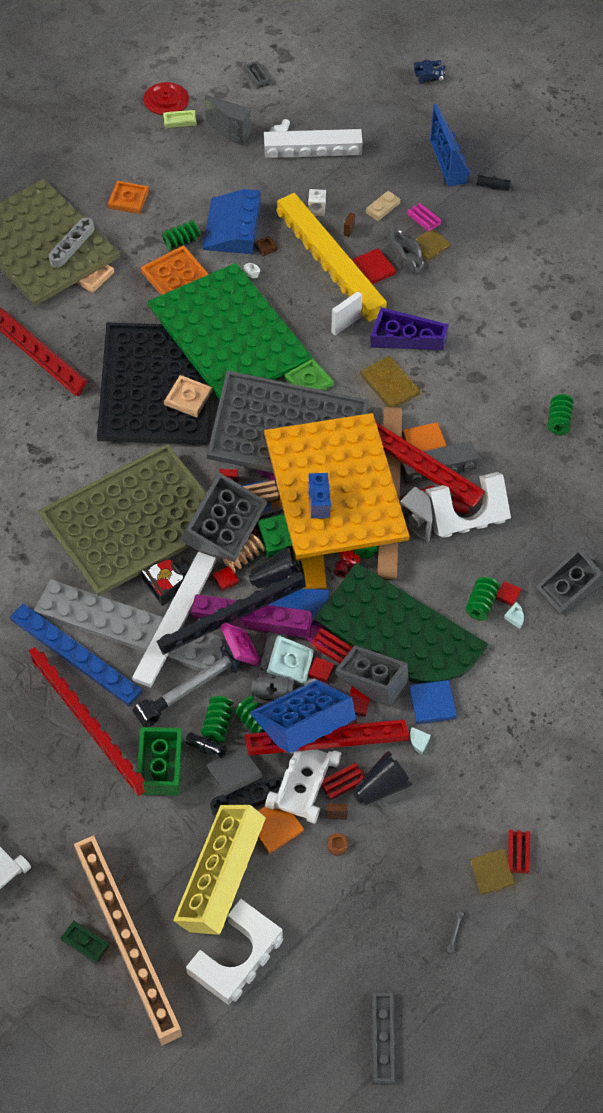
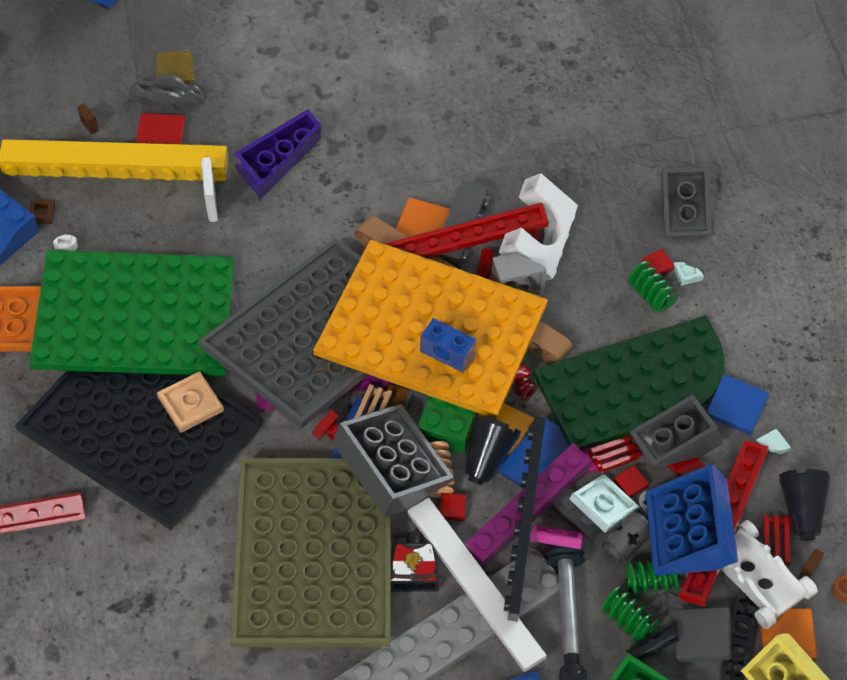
camera: 55 degrees left, 0 degrees up
(310, 376) = (254, 276): bright green tile -> none
(317, 202) = (31, 127): white brick -> none
(383, 205) = (87, 76): tan plate -> none
(390, 382) = (322, 209): clear yellow tile -> none
(426, 215) = (138, 49): dark pink tile -> none
(560, 414) = (485, 90): green piece -> none

